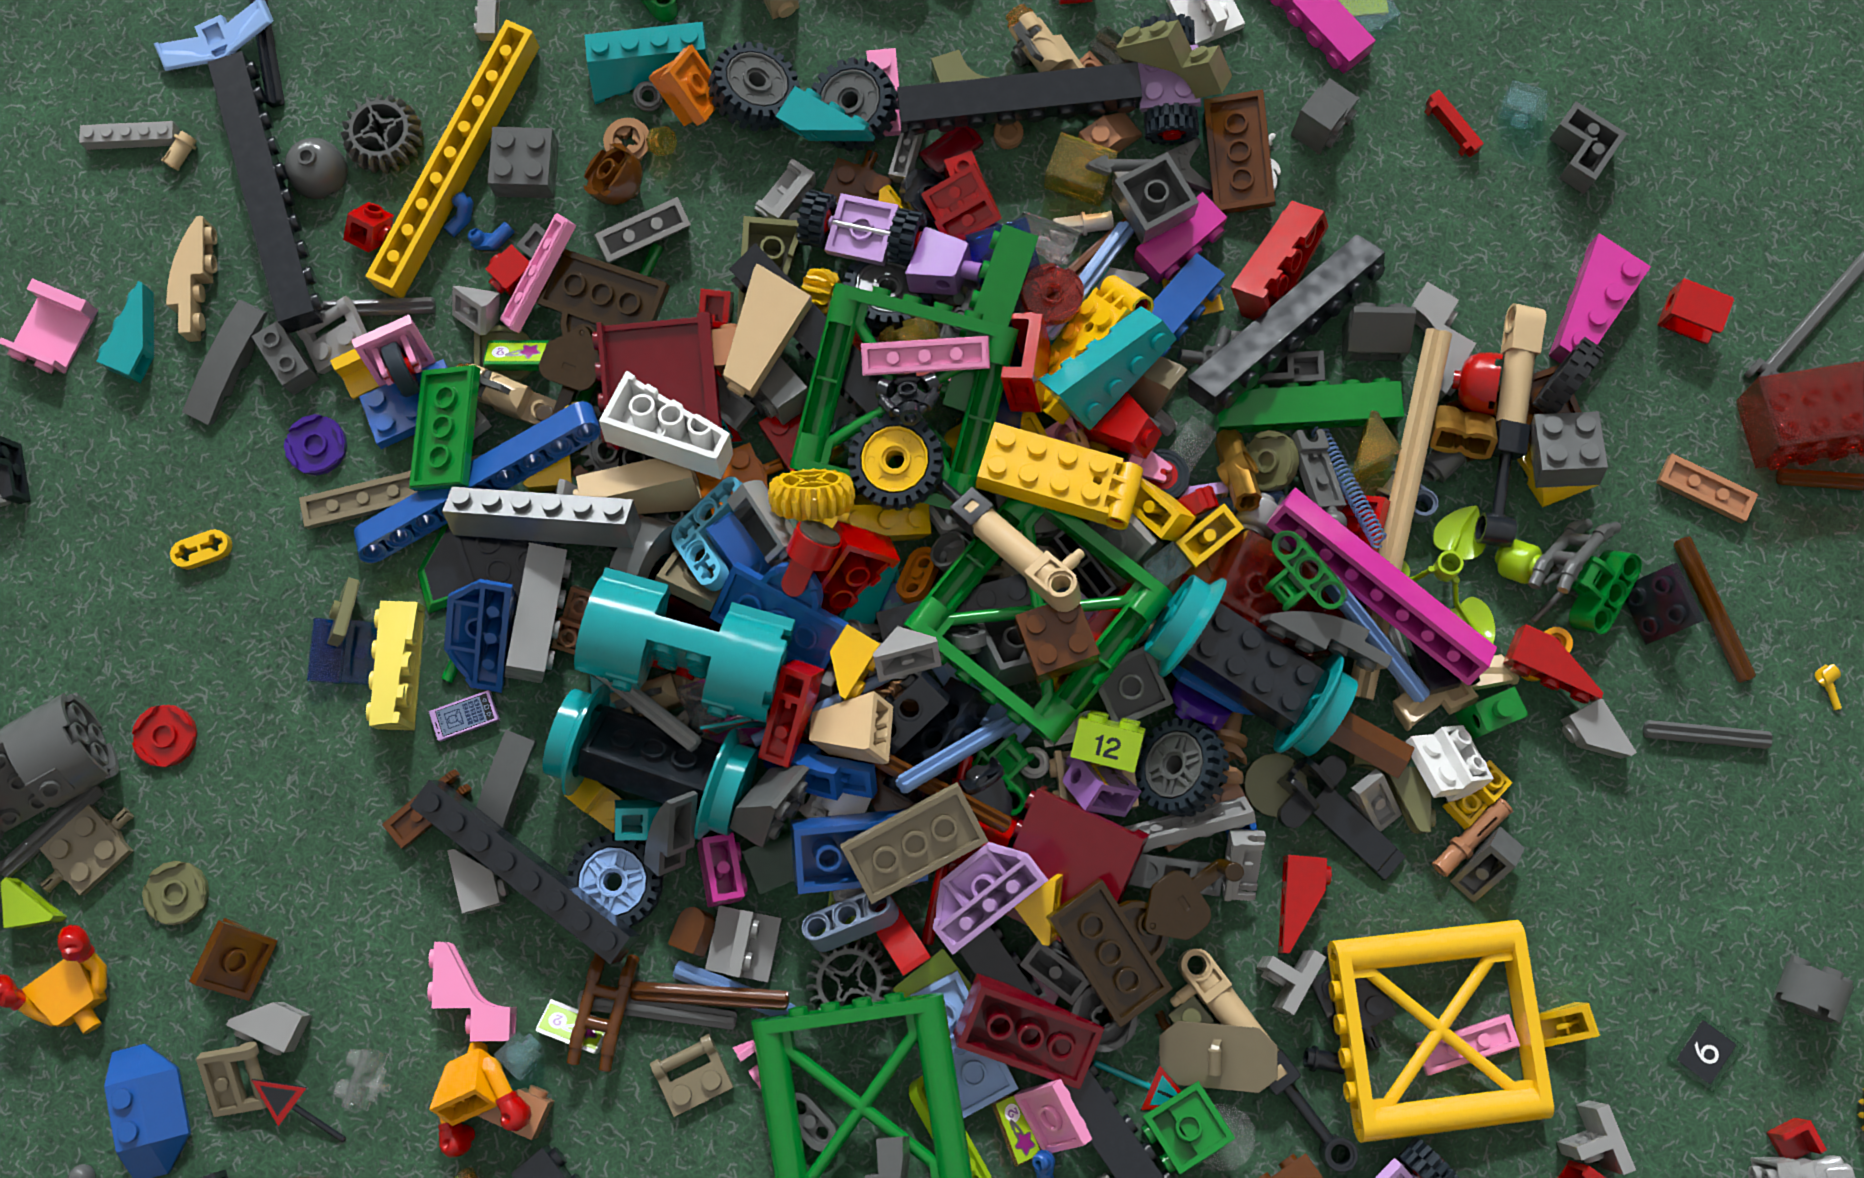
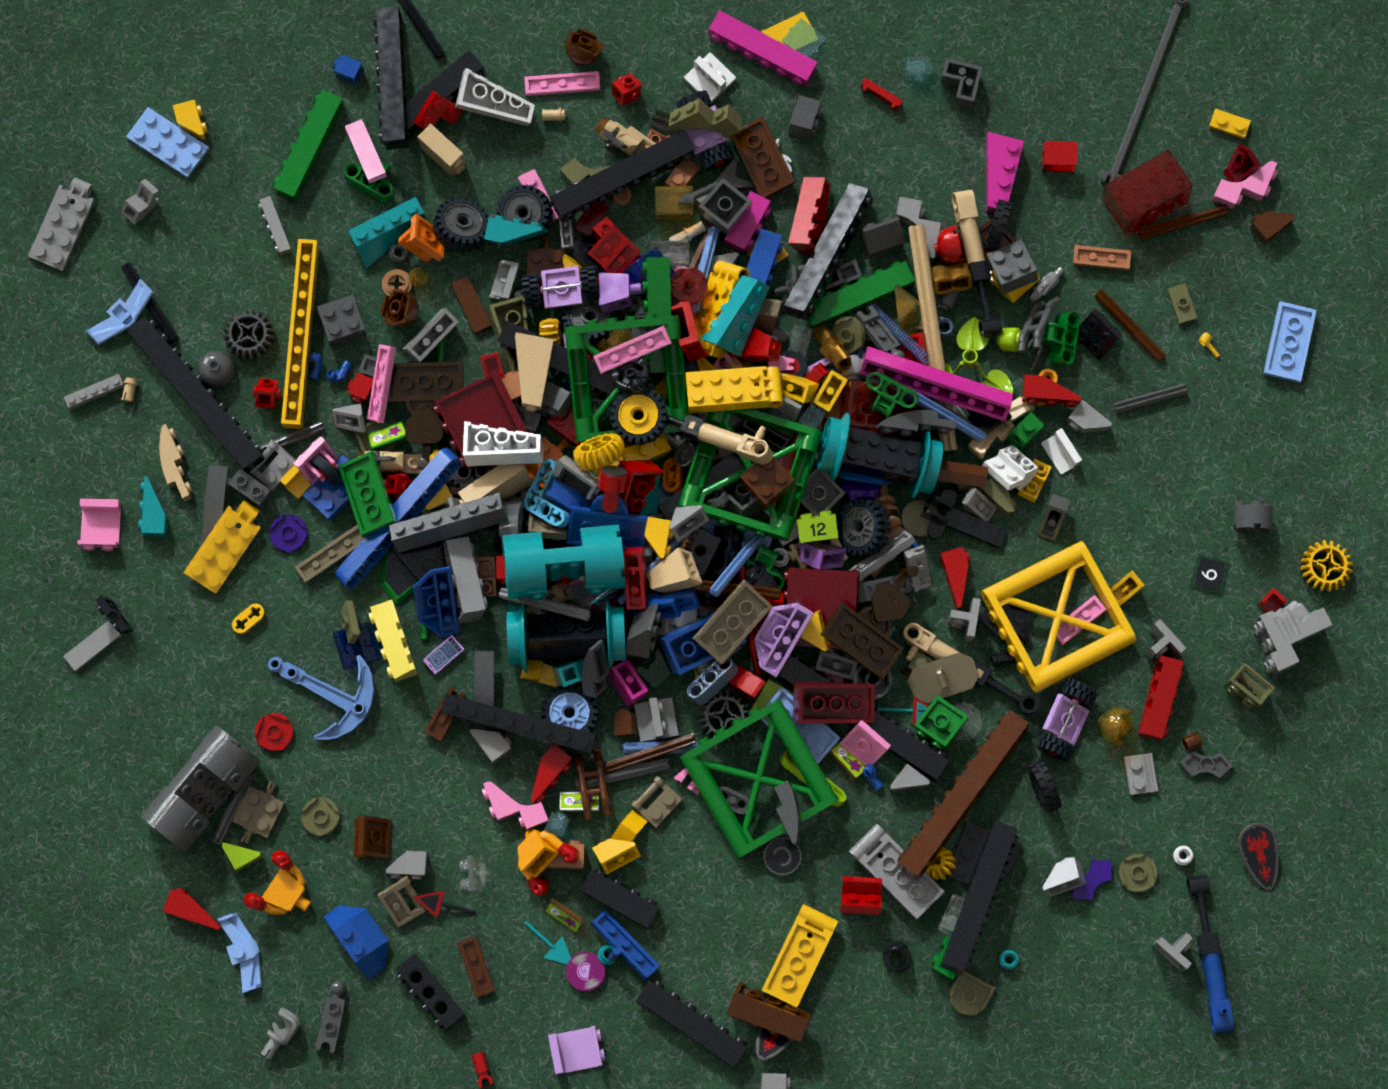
camera: 25 degrees left, 0 degrees up
(209, 428) = (223, 547): none -> yellow hinge
(279, 721) = (352, 718): none -> medium blue piece
(497, 430) = (397, 484): none -> red brick
(547, 958) = (551, 766): none -> red slope
(589, 1137) = (615, 854): none -> yellow slope
(631, 1103) = (630, 827): none -> yellow slope
(723, 210) = (471, 305): none -> reddish brown tile
(1463, 845) = (1036, 512): nougat pin -> none
(1537, 765) = (1061, 452): none -> white panel
(1605, 497) = (1046, 284): none -> light grey piece
(1808, 606) = (1182, 304): none -> olive plate

